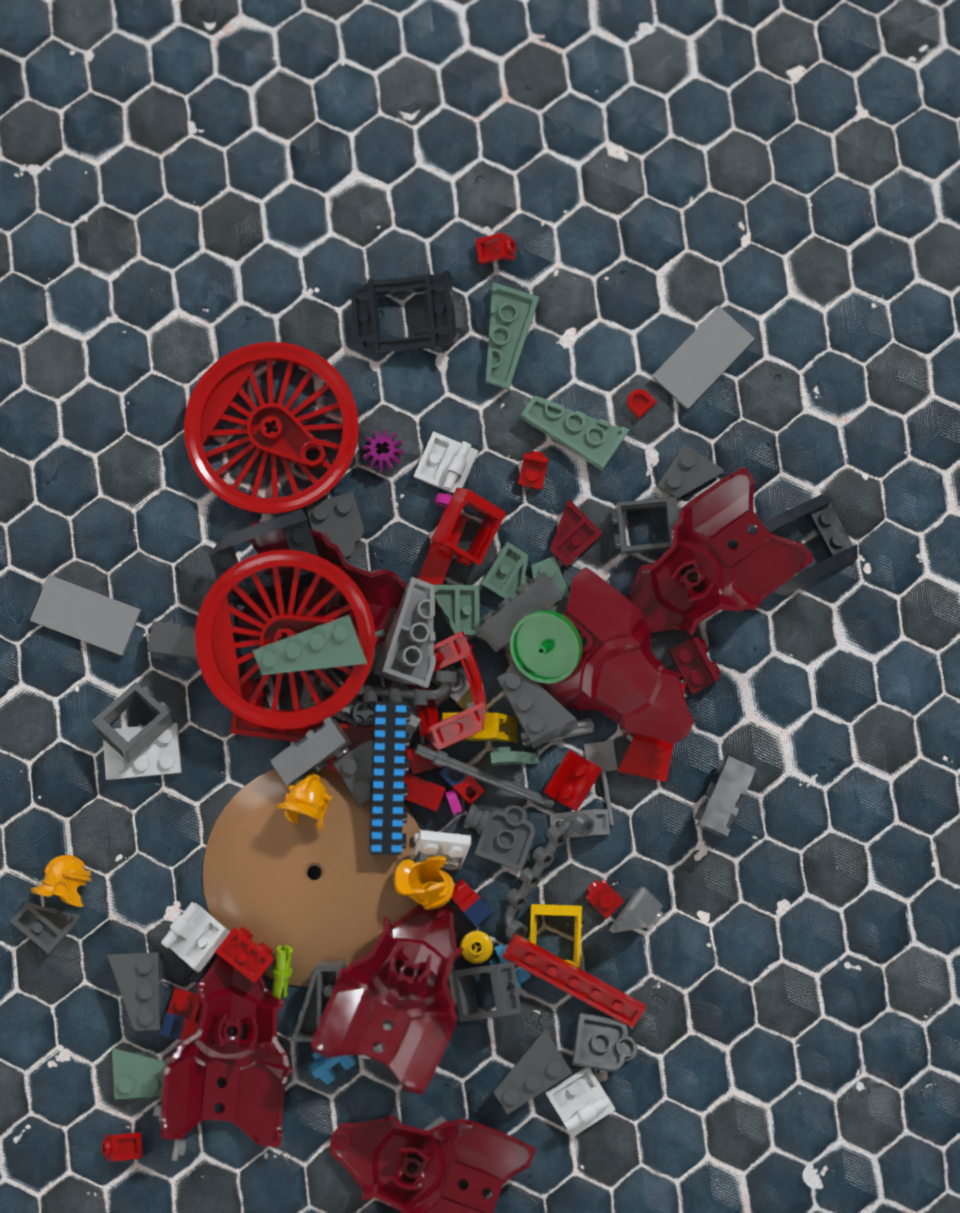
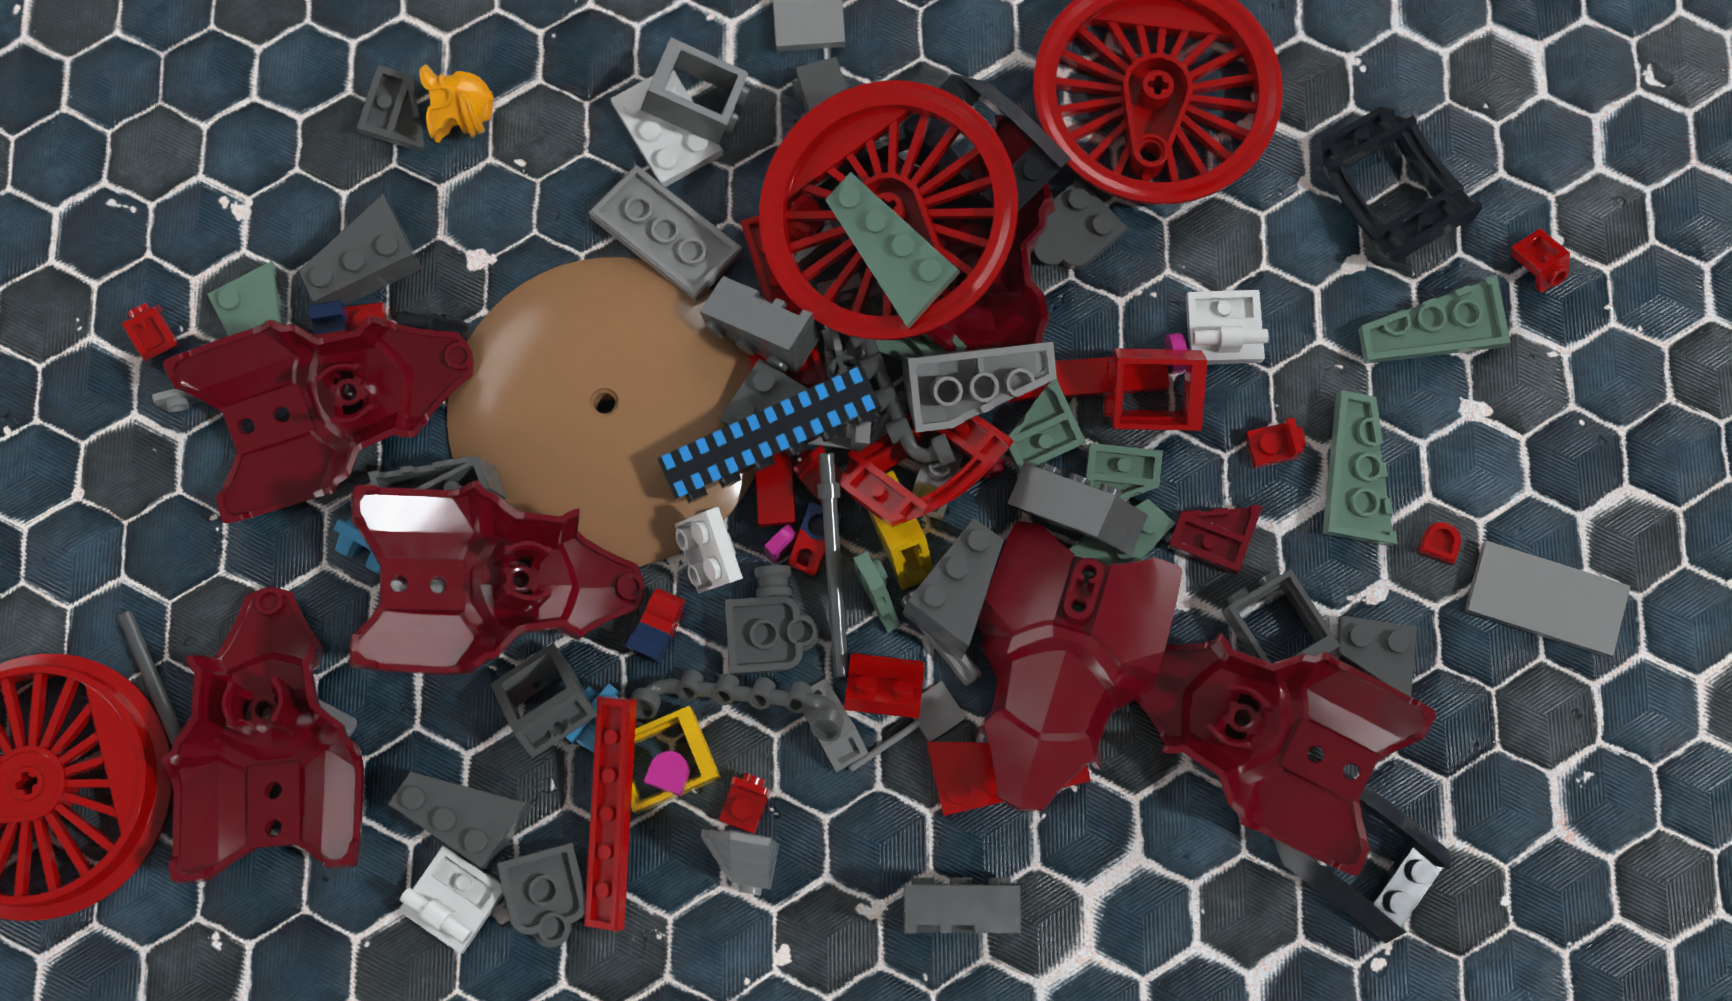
camera: 65 degrees right, 5 degrees down
(195, 936) = (456, 291): white plate -> none
(215, 784) = (665, 232): none -> light grey tile
(245, 953) = (459, 363): red bracket -> none
(282, 971) = (457, 422): lime pin -> none
(307, 797) = (691, 344): light orange helmet -> none
(382, 441) = (1213, 239): magenta gear -> none
(424, 881) = (653, 548): light orange helmet -> none
(486, 945) = (593, 650): yellow head -> none
(546, 646) = (1047, 559): green piece -> none
(567, 934) = (668, 772): none -> dark pink tile
(695, 665) = (1123, 781): dark red bracket -> none

